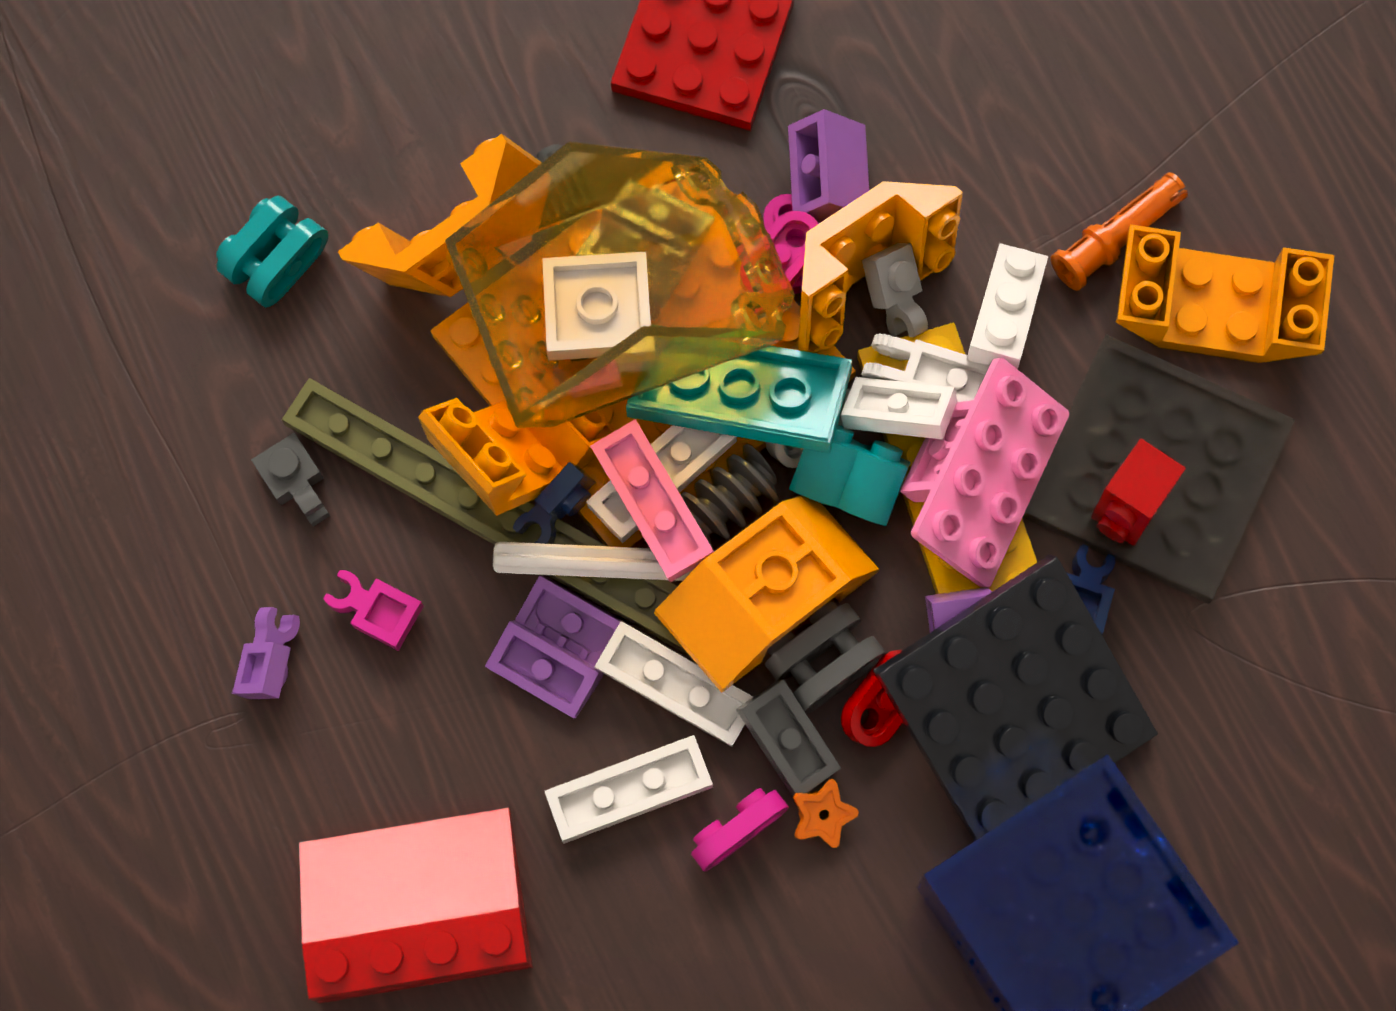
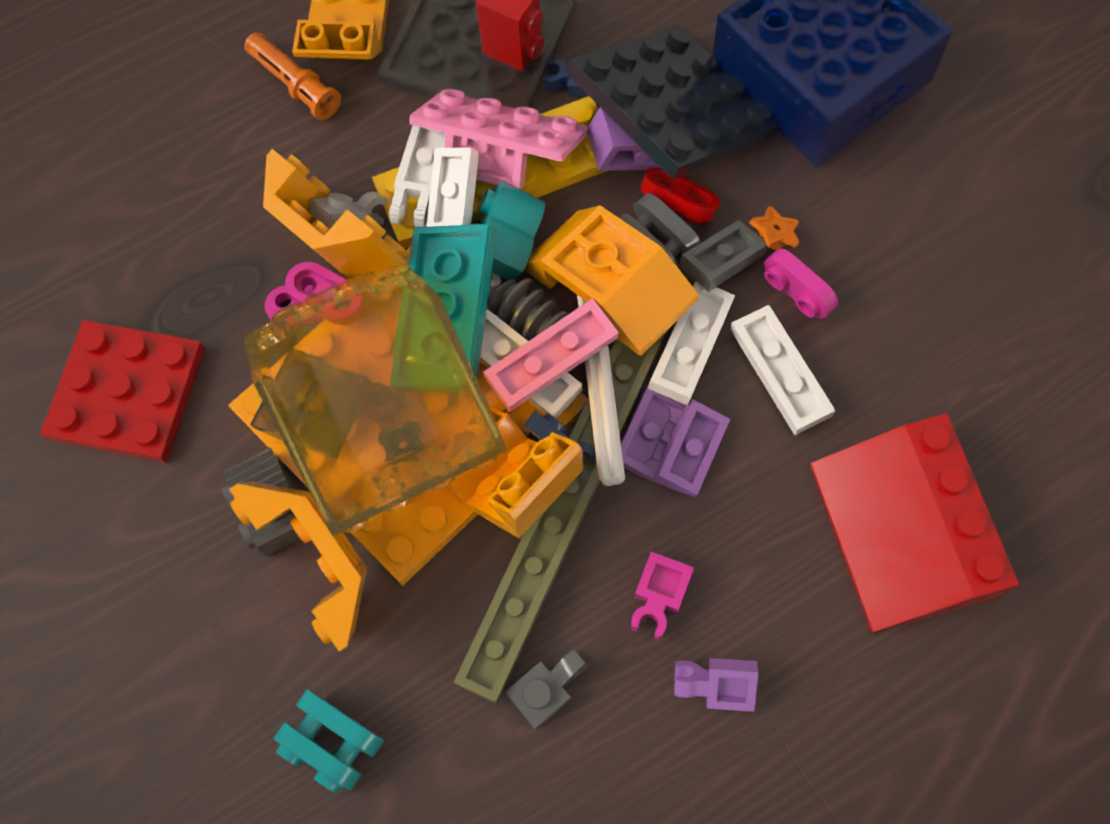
camera: 95 degrees left, 5 degrees down
(593, 302) = (383, 412): plate -> none
(827, 163) = (244, 270): medium lavender brick -> none
(1007, 306) = (360, 134): white plate -> none

